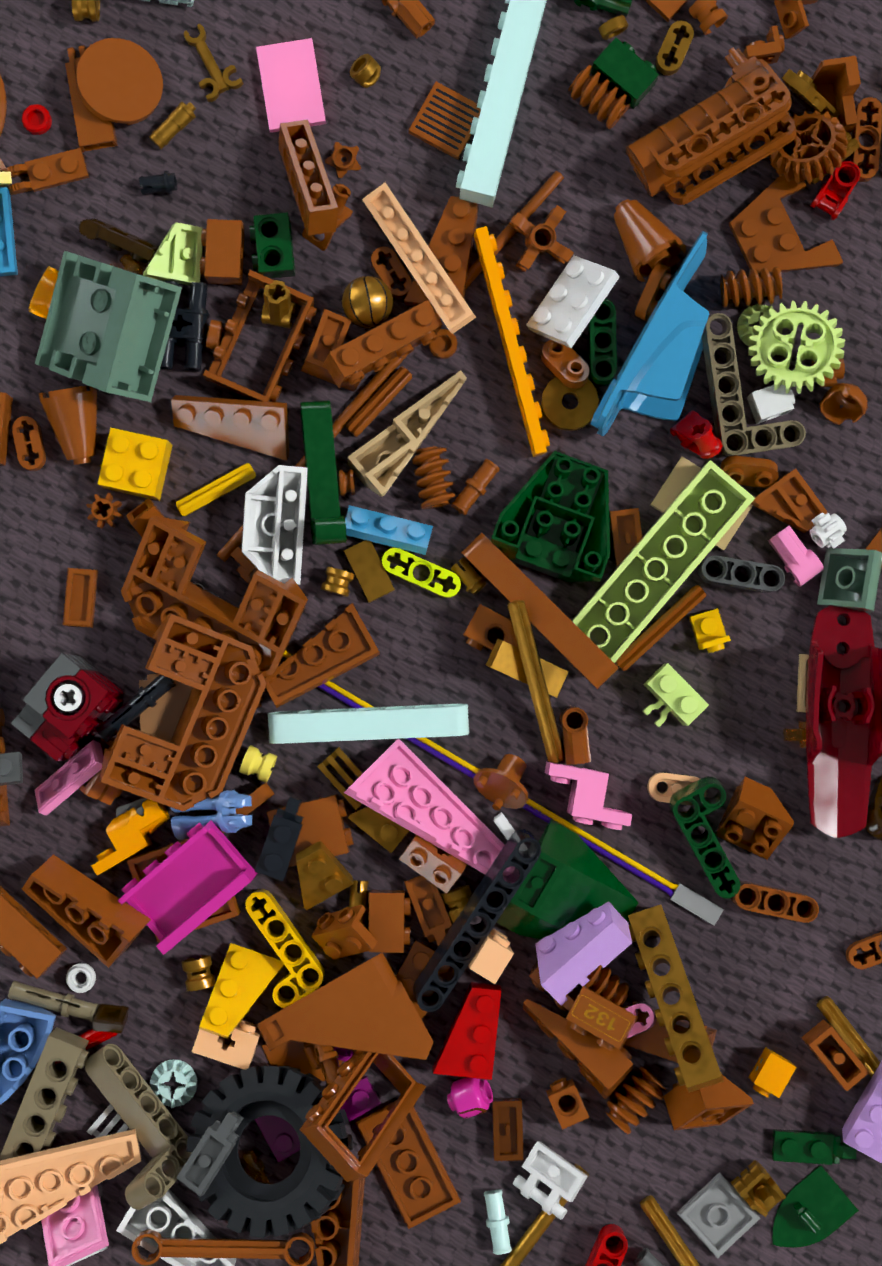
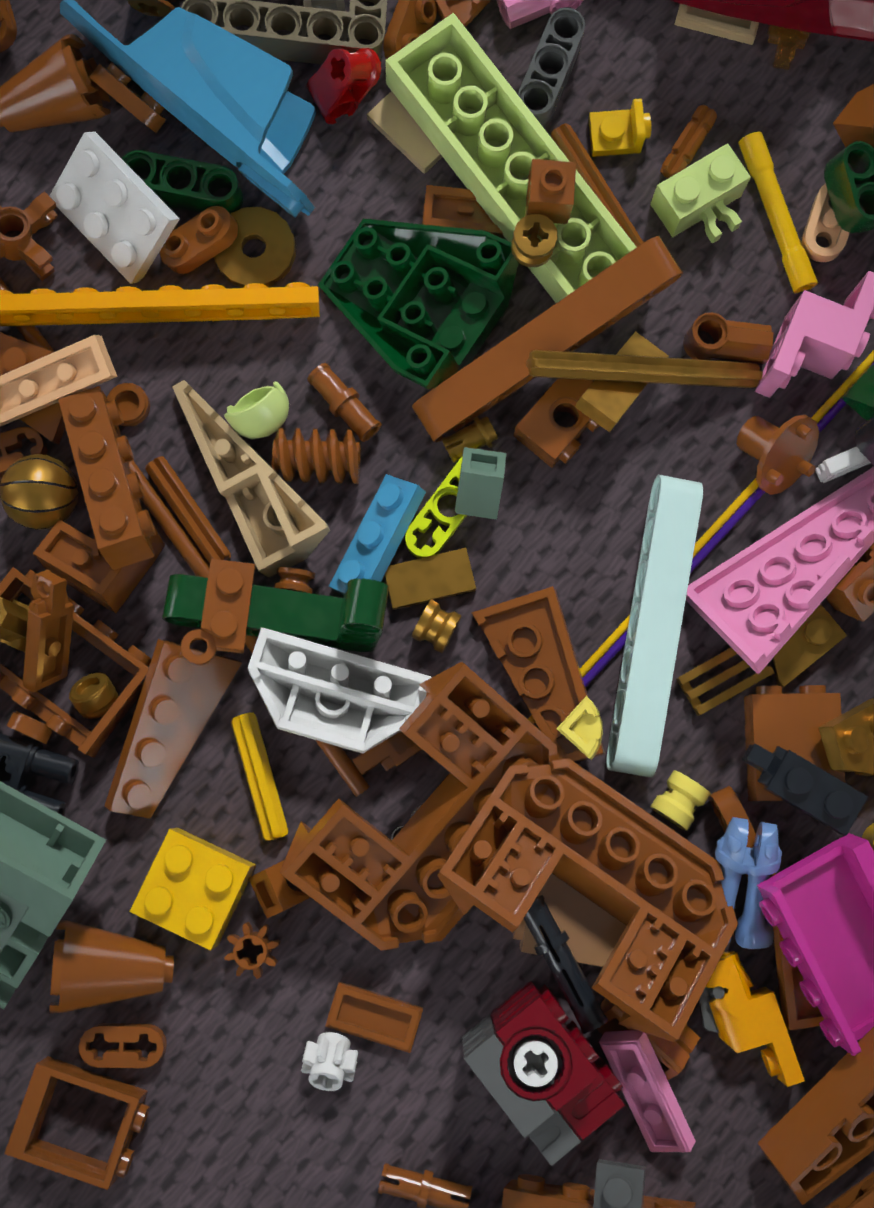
camera: 70 degrees left, 5 degrees down
(46, 575) = (329, 1061): none -> white gear
(244, 370) = (93, 695): none -> pearl gold tile
(274, 331) = (47, 632): none -> dark orange hinge
(287, 689) = (584, 728): none -> light yellow tile
(312, 441) = (224, 611): none -> dark orange hinge
(438, 589) = (480, 483): none -> sand green panel
(454, 432) = (259, 412): none -> yellowish green hair
(600, 590) = (532, 251): none -> pearl gold wheel
(638, 590) = (551, 189): none -> dark orange brick
(703, 735) = (762, 171): none -> yellow piece
(712, 681) = (689, 141): none -> dark orange axle

